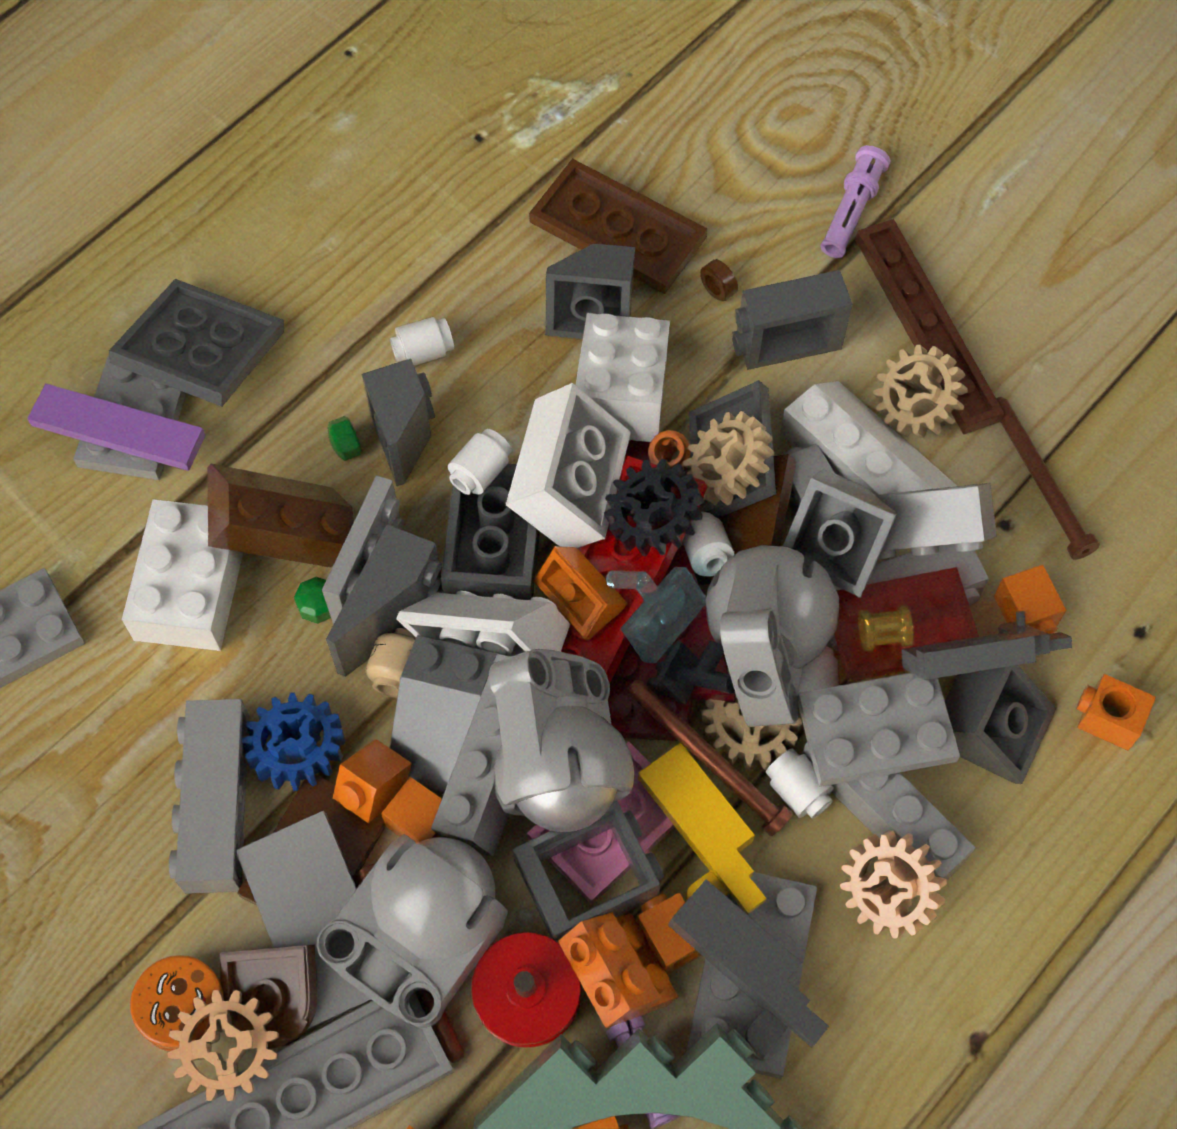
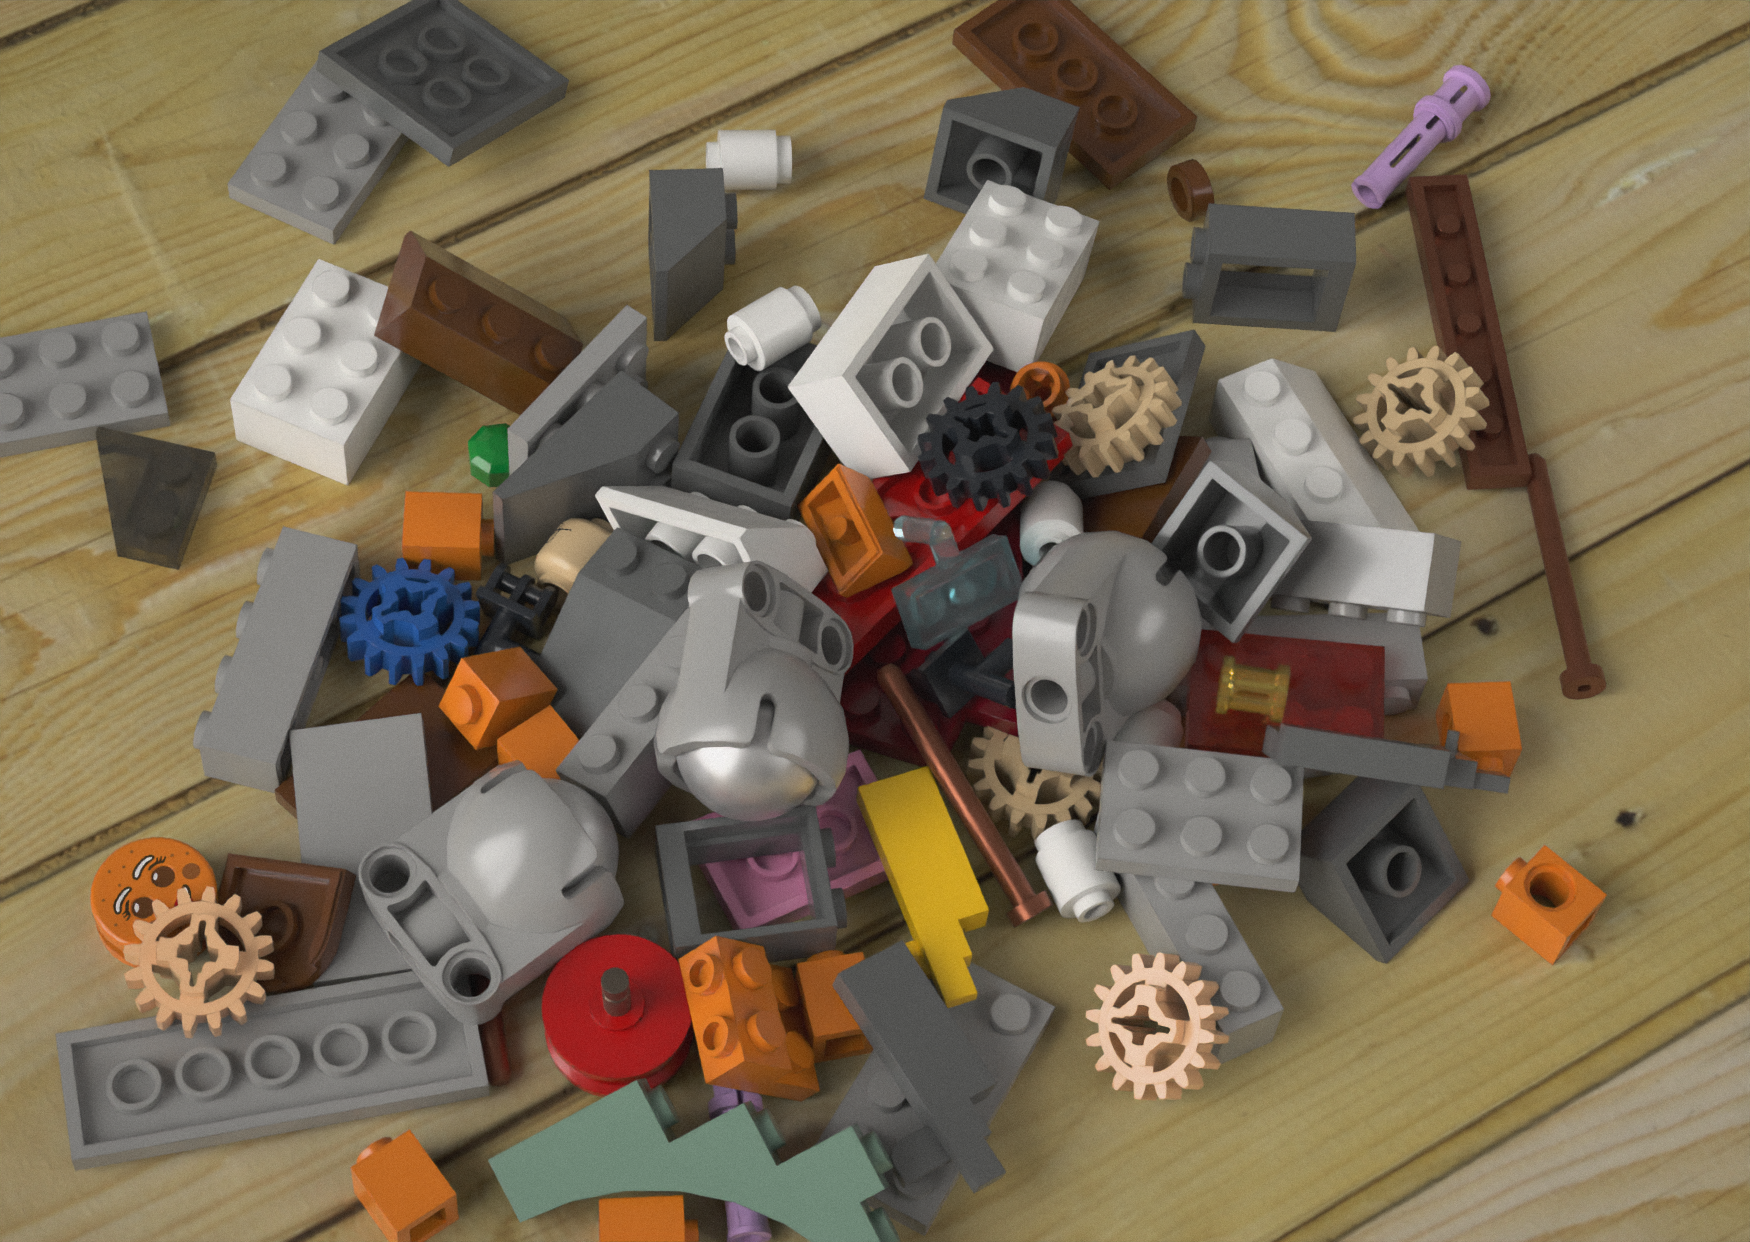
camera: 10 degrees right, 5 degrees down
(87, 698) = (153, 494): none -> clear smoke wing
(116, 427) = (299, 155): medium lavender tile -> none
(299, 669) = (447, 532): none -> orange brick
(344, 438) = (601, 256): green tile -> none
(359, 716) = (511, 613): none -> black arm

